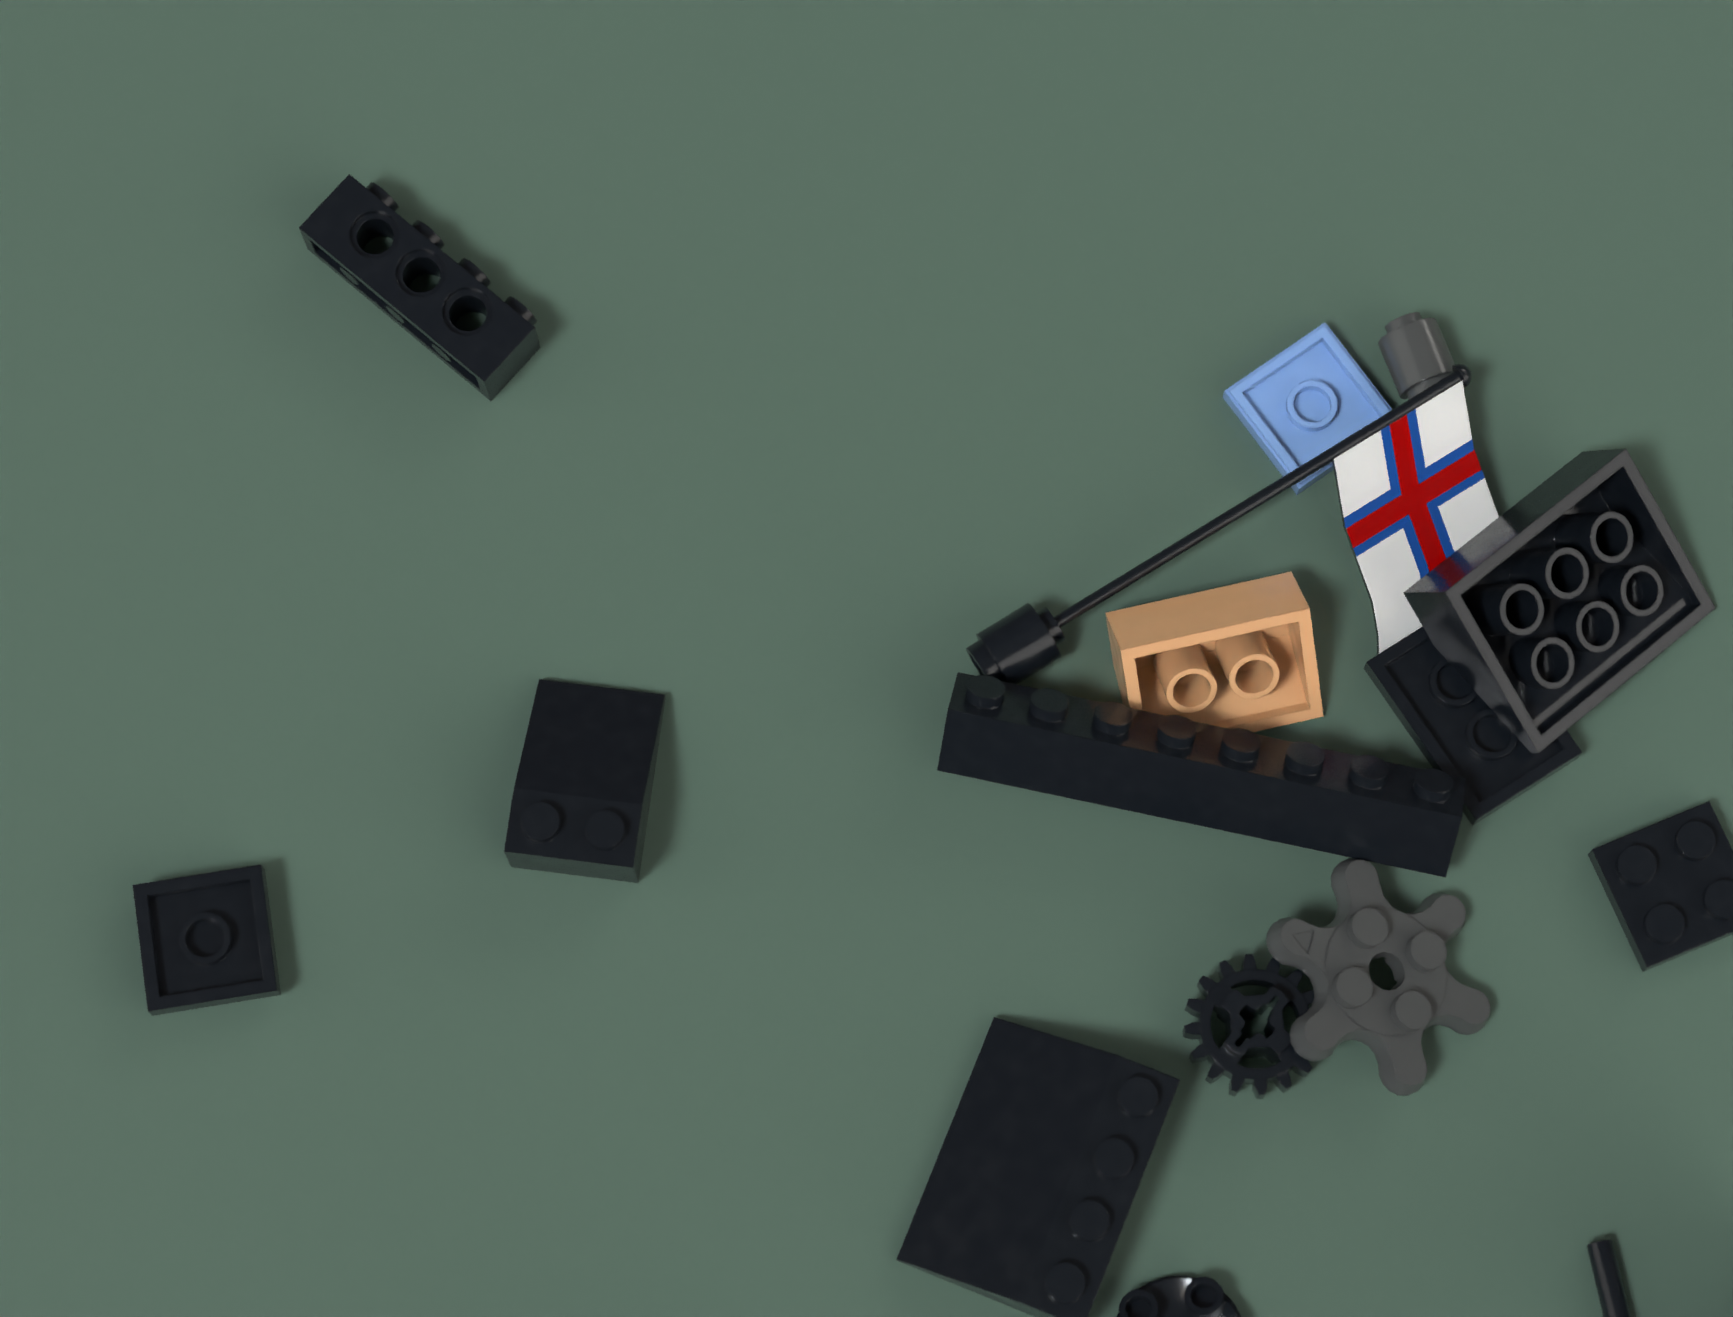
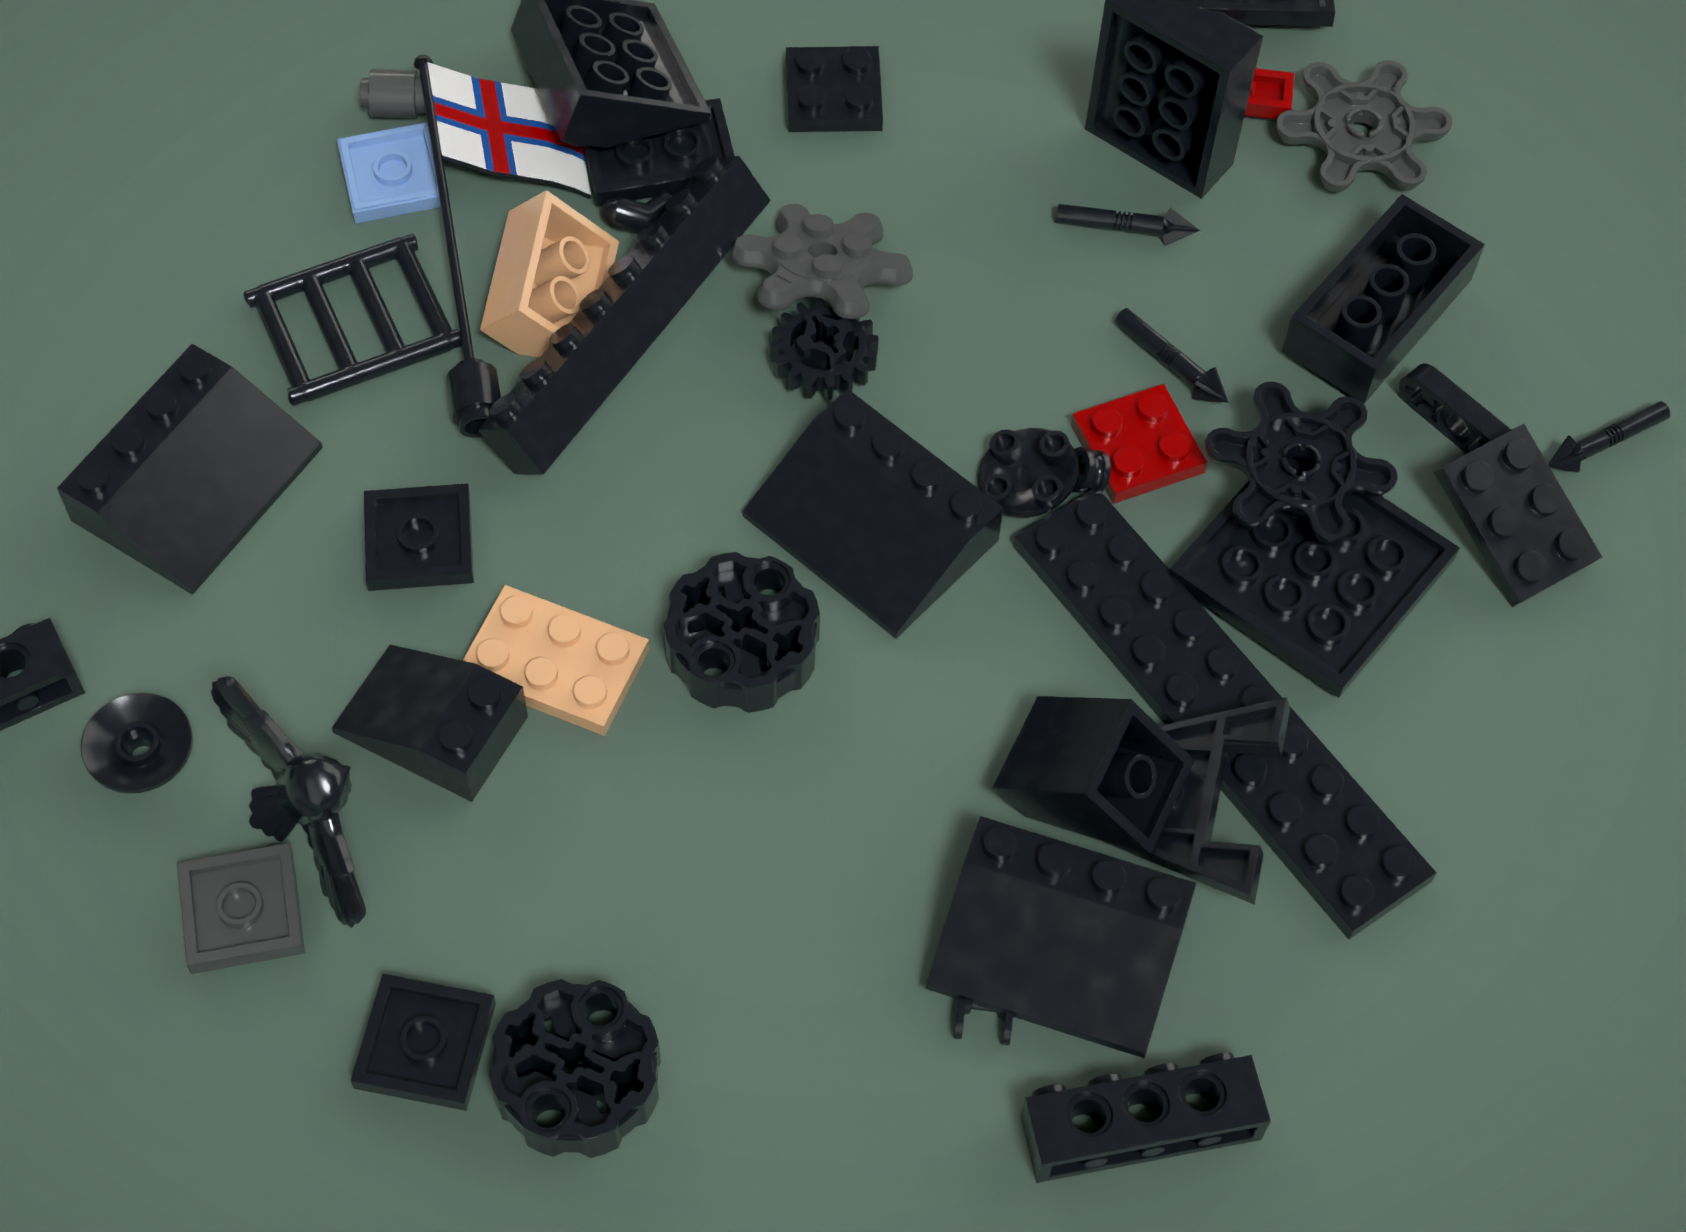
camera: 75 degrees left, 15 degrees down
(283, 1075) = (537, 1076): none -> black connector
(289, 684) = (240, 908): none -> dark grey plate
(418, 697) = (306, 792): none -> black animal
(429, 459) = (133, 723): none -> black dish
(714, 882) = (560, 657): none -> light nougat plate
(794, 379) = (188, 469): none -> black slope
(807, 665) = (418, 537): none -> black plate
(877, 1055) = (742, 632): none -> black connector
(1051, 531) = (349, 370): none -> black bar
(1364, 724) = (632, 214): none -> black arm

